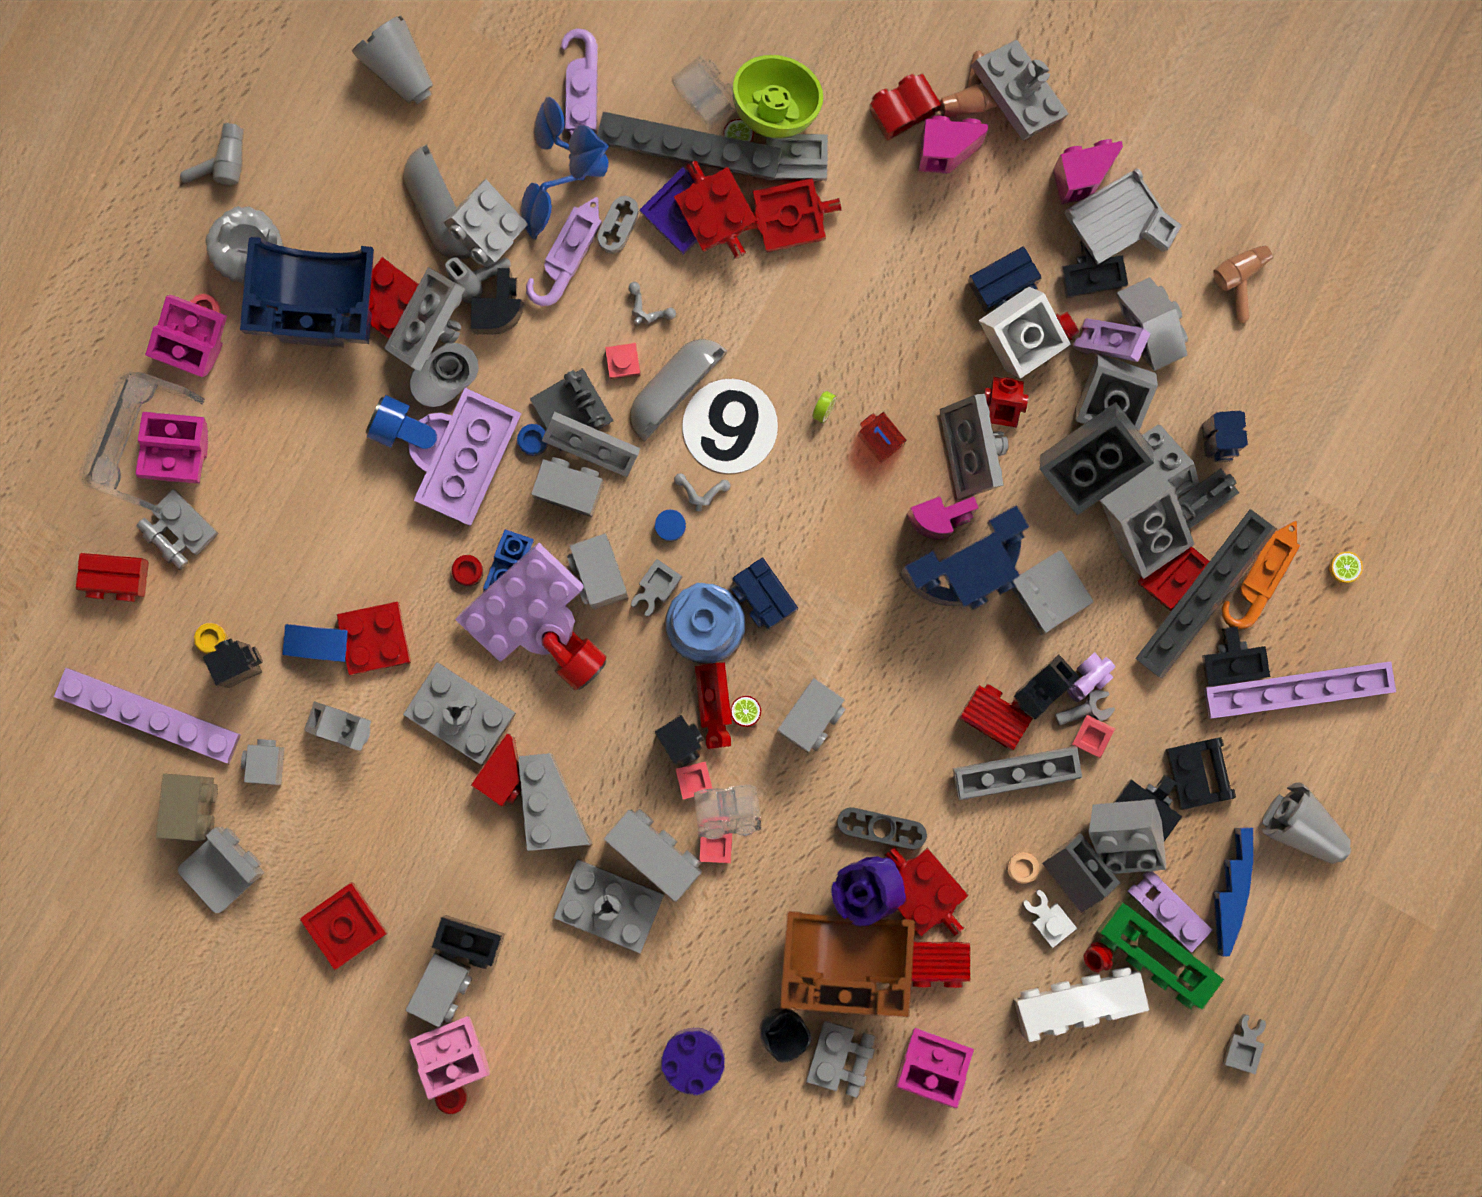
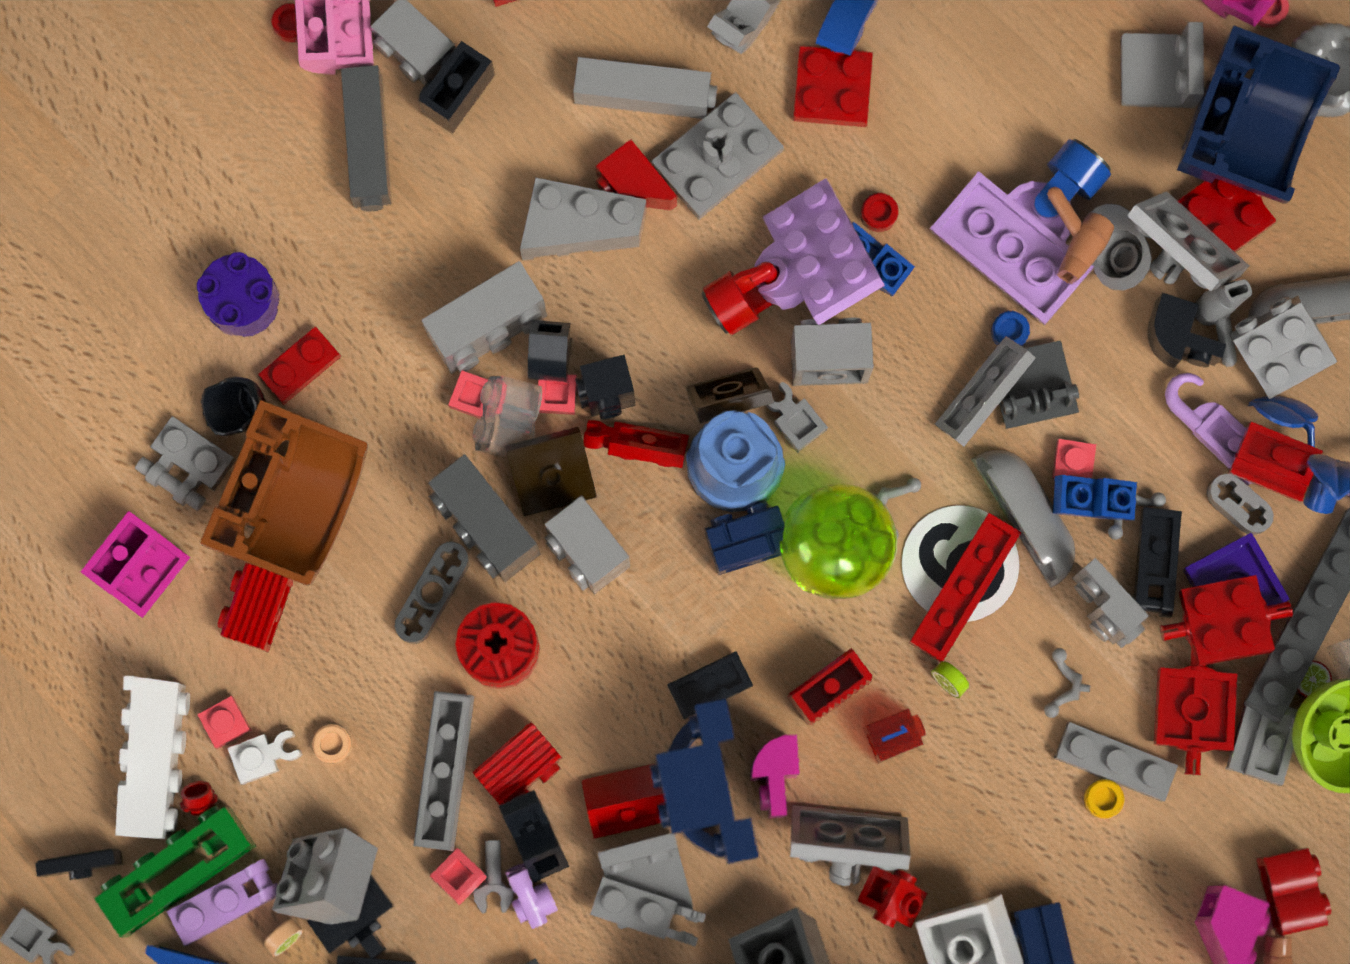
camera: 105 degrees right, 5 degrees down
(282, 379) = (1163, 68): none -> light grey bracket
(422, 788) = (643, 88): none -> light grey brick
(445, 397) = (1088, 239): none -> nougat piece
(531, 1001) = (366, 137): none -> dark grey brick
(568, 487) = (941, 350): light grey brick -> none
(580, 206) = (1274, 461): none -> red plate
(608, 906) = (445, 255): light grey plate -> none
(649, 336) = (1094, 497): none -> blue slope
(656, 642) = (729, 393): none -> dark brown plate
(665, 794) = (549, 351): none -> black brick
(670, 525) = (862, 457): blue tile -> none
(683, 275) = (1157, 559): none -> black plate
(733, 994) = (299, 365): none -> red plate
(735, 297) = (1117, 614): none -> light grey plate
(745, 711) = (618, 477): tile -> none
(746, 522) = (838, 541): none -> clear neon green cylinder
(749, 415) = (965, 587): none -> red plate
(759, 764) = (550, 471): none -> dark brown plate
(816, 804) = (482, 519): none -> dark grey brick
(823, 323) = (1052, 709): none -> light grey piece
(847, 264) = (1116, 762): none -> light grey plate
(861, 495) = (830, 687): none -> red brick
(868, 890) = (363, 550): dark purple brick -> none
(878, 265) = (1103, 799): none -> yellow tile
(886, 589) = (710, 683): none -> black plate
(901, 777) = (514, 661): none -> red wheel
(929, 891) = (342, 619): red plate -> none
(995, 628) = (622, 801): none -> red panel
(1033, 957) = (224, 722): none -> coral plate
(1075, 586) = (642, 911): none -> light grey hinge
(1079, 873) = (301, 807): dark grey brick -> none
(1178, 1031) = (78, 865): none -> black plate
(1182, 855) = (283, 937): none -> light nougat tile

